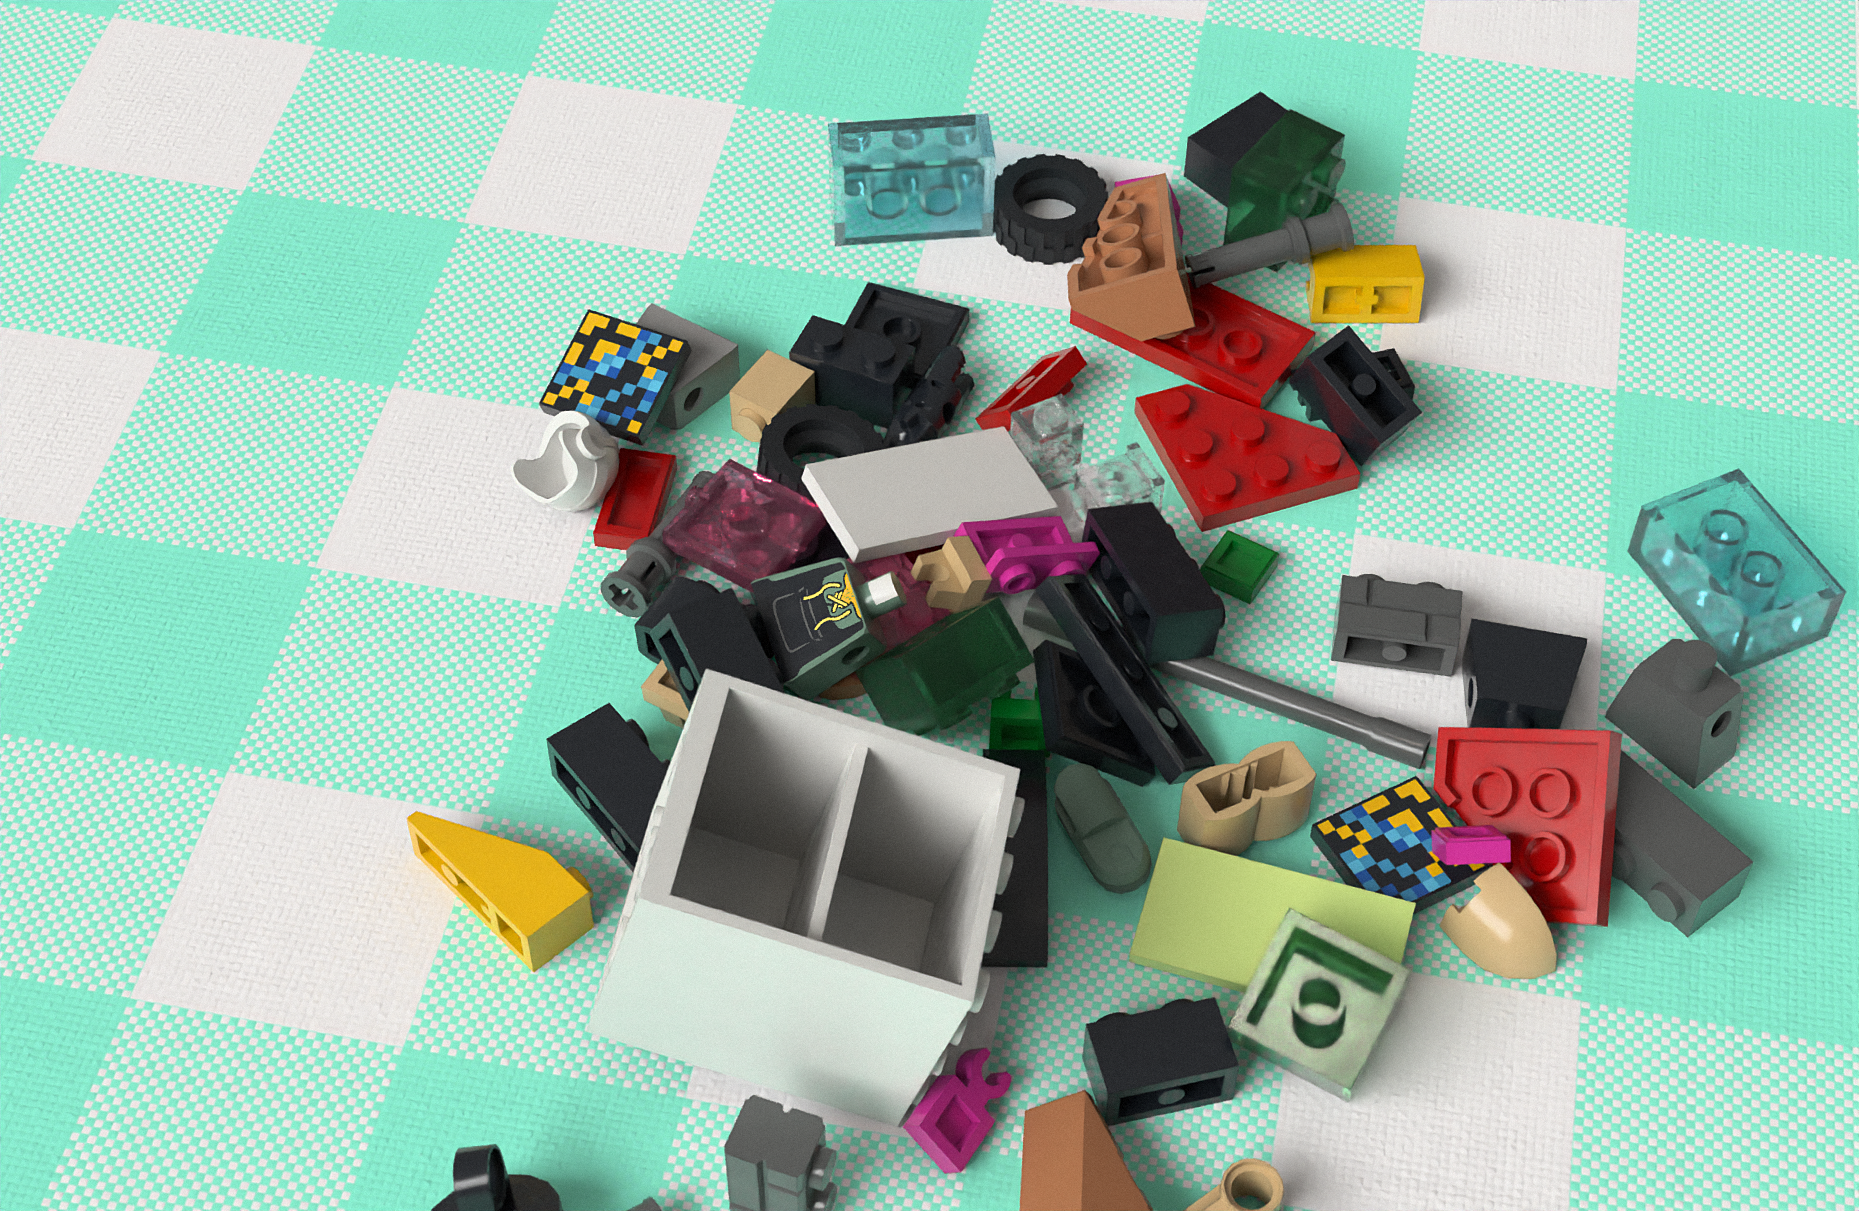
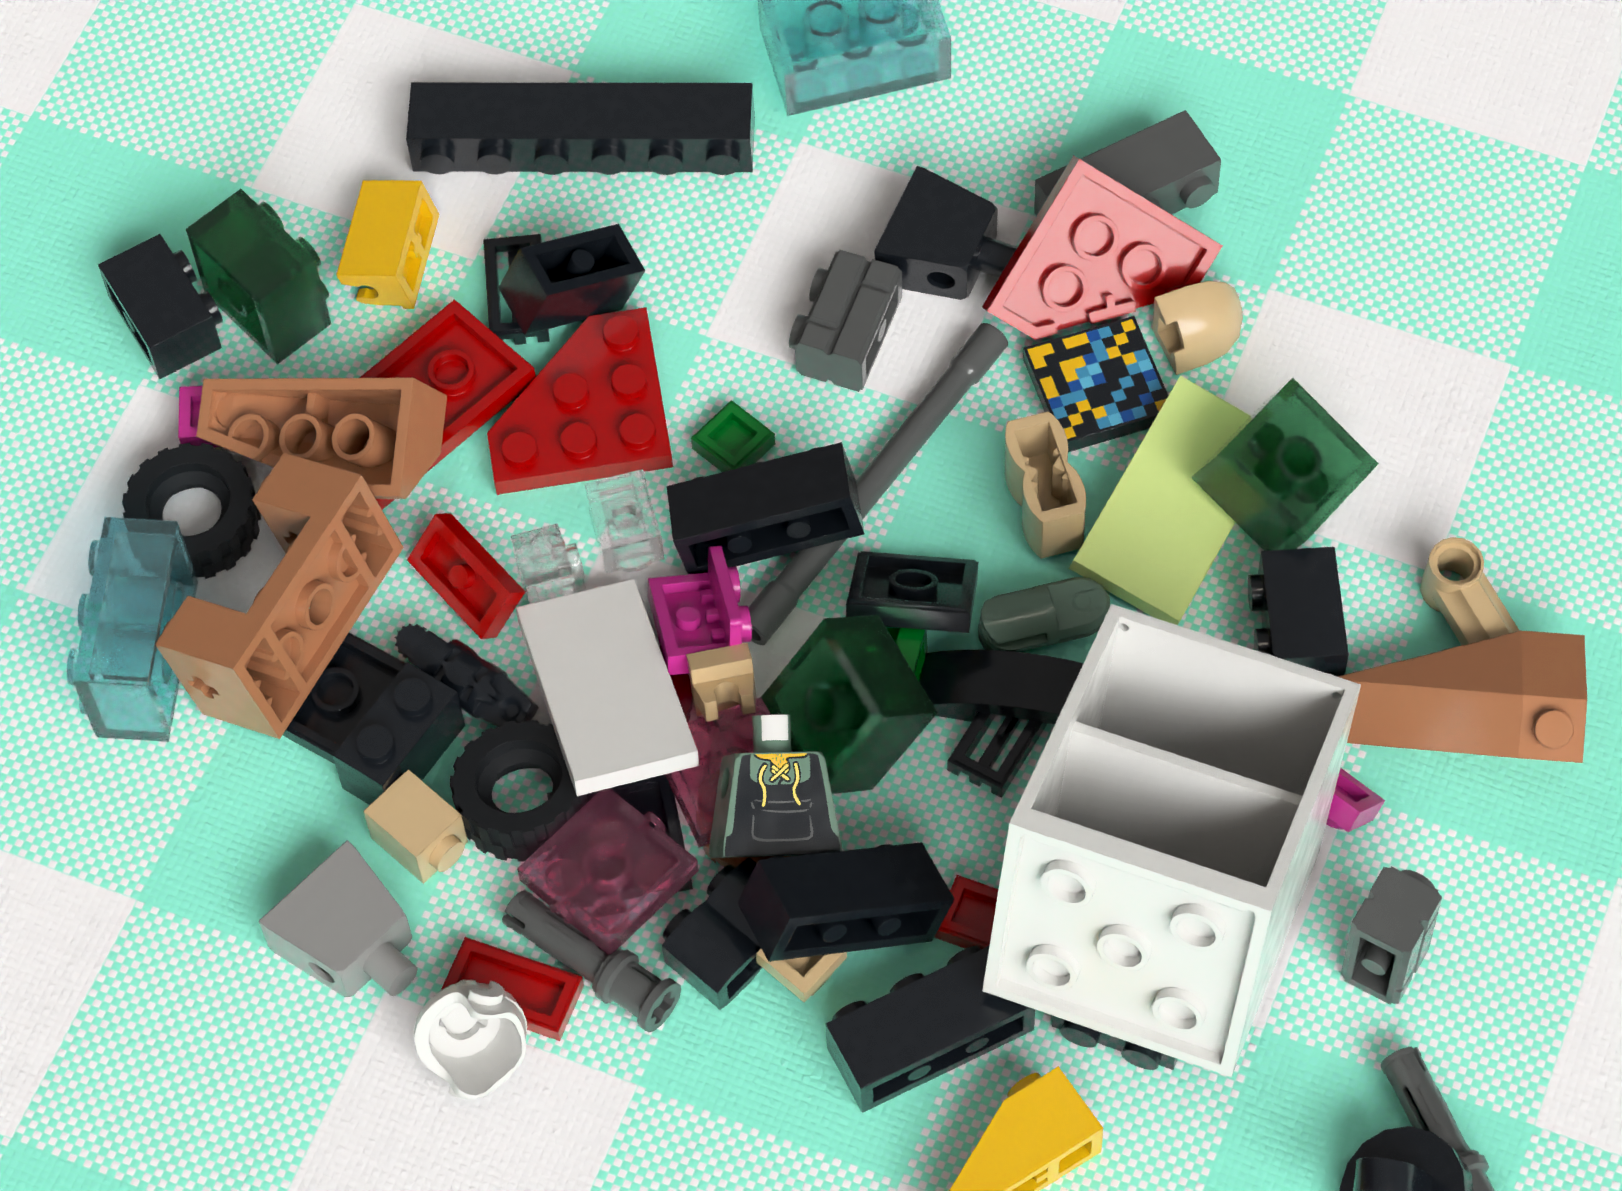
camera: 75 degrees left, 10 degrees up
(617, 375) = (371, 967): tile -> none
(1012, 275) = (266, 661): none -> nougat plate
(1125, 677) = (878, 555): black tile -> none
(1293, 242) = (349, 280): dark grey pin -> none
(1470, 845) = (1128, 317): dark pink tile -> none
(1543, 397) = (581, 127): none -> black brick
(1681, 709) = (999, 121): dark grey torso -> none

